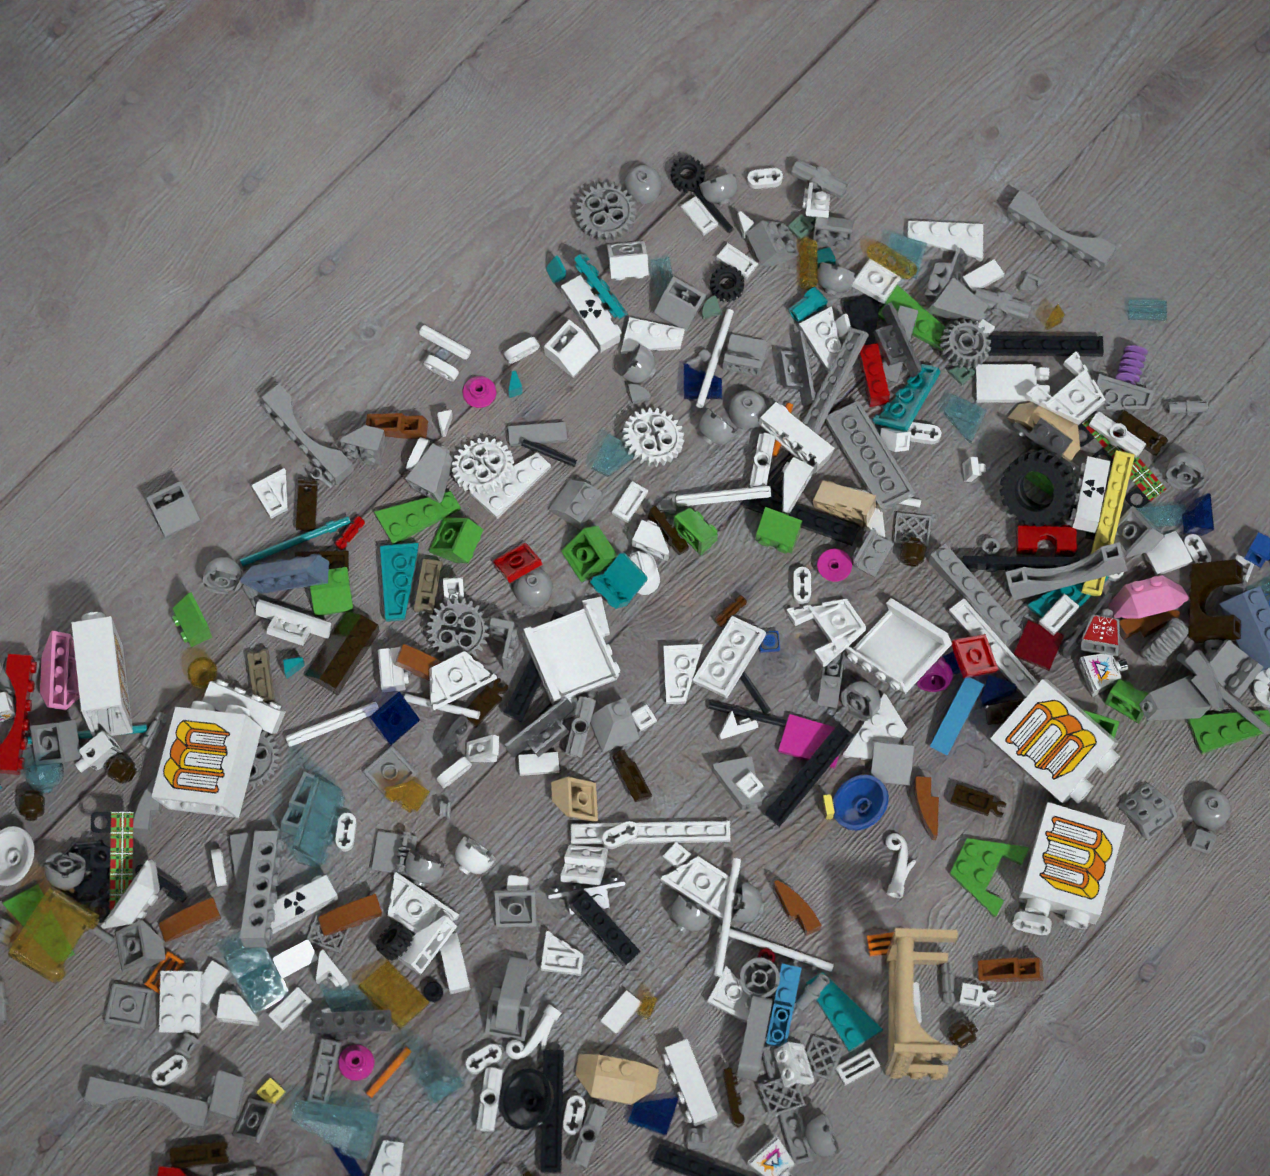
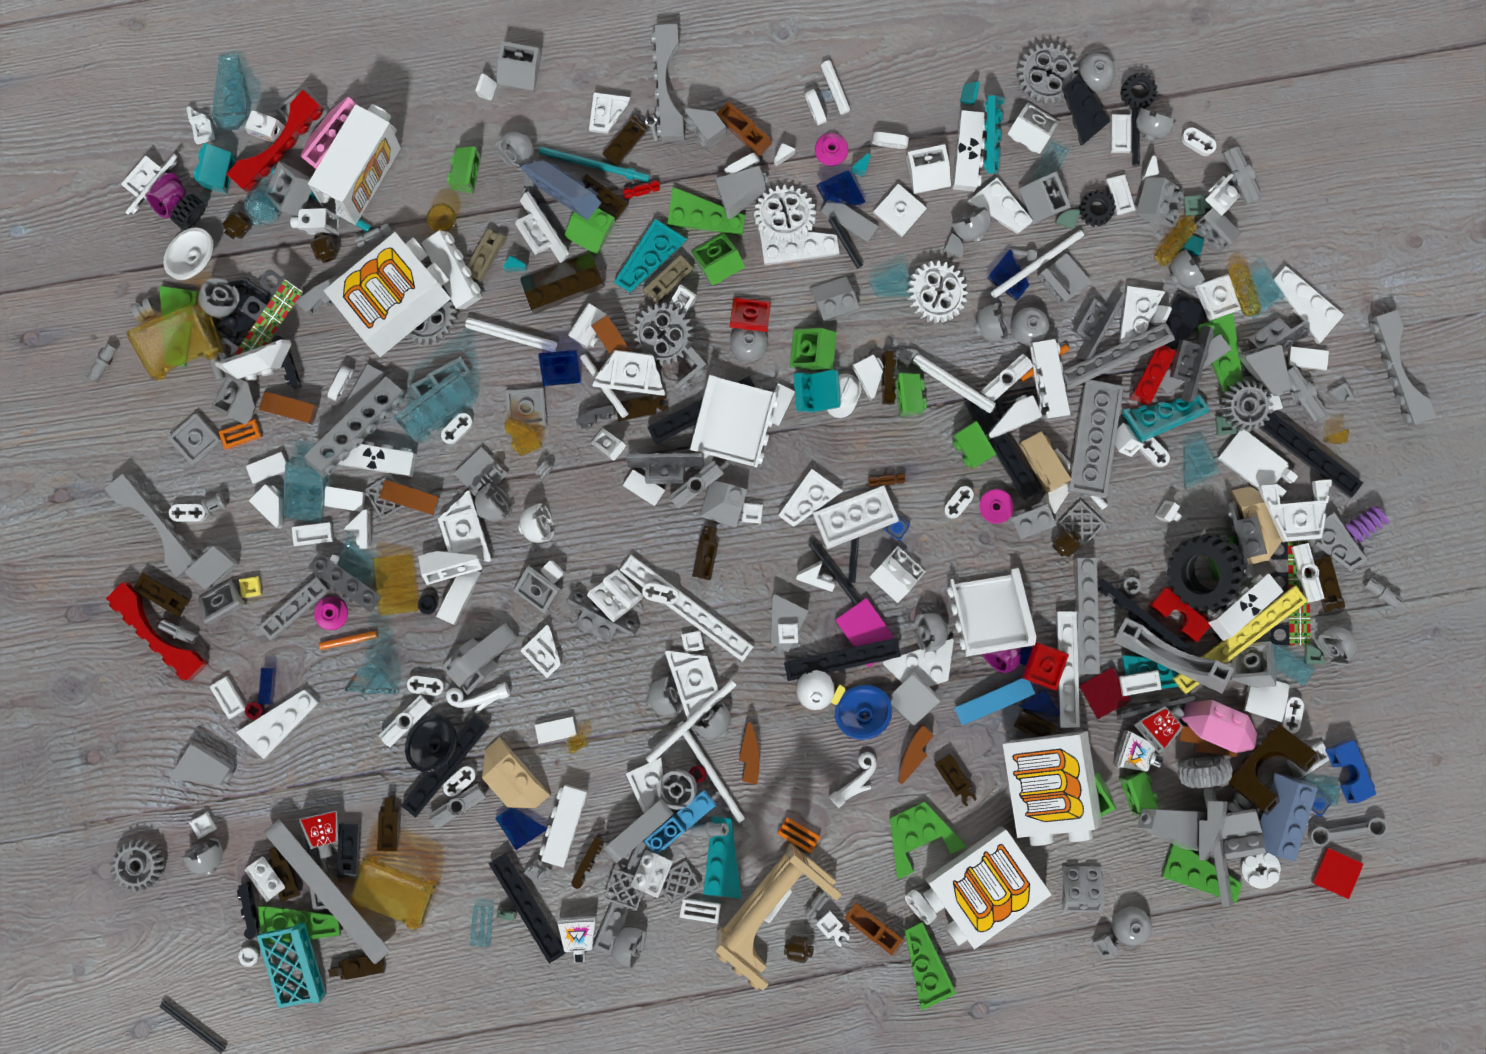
camera: 35 degrees right, 15 degrees up
(158, 546) = (486, 87): none -> white slope
(180, 1001) = (233, 466): white plate -> none
(341, 1126) = (277, 658): clear light blue wedge -> none
(394, 941) = (425, 545): black tyre -> none
(454, 772) = (573, 445): white beam -> none
(513, 415) = (841, 190): none -> clear blue wing
(572, 398) = (899, 210): none -> white plate
(576, 798) = (648, 539): tan slope -> none
(604, 928) = (589, 659): black brick -> none
(630, 502) = (878, 331): white tile -> none
(656, 216) = (1085, 109): none -> black wing
(799, 676) = (897, 574): none -> white slope
(807, 815) = (815, 690): none -> white cylinder
(811, 301) = (1153, 275): teal piece -> none
(831, 682) = (922, 594): light grey slope -> none
(837, 622) = (961, 555): white wing -> none
(1081, 970) = (929, 973): none -> bright green wing
(1157, 314) = (1413, 493): clear light blue tile -> none
(1175, 494) = (1313, 655): none -> sand green tile
(1199, 516) = (1317, 689): clear blue slope -> none

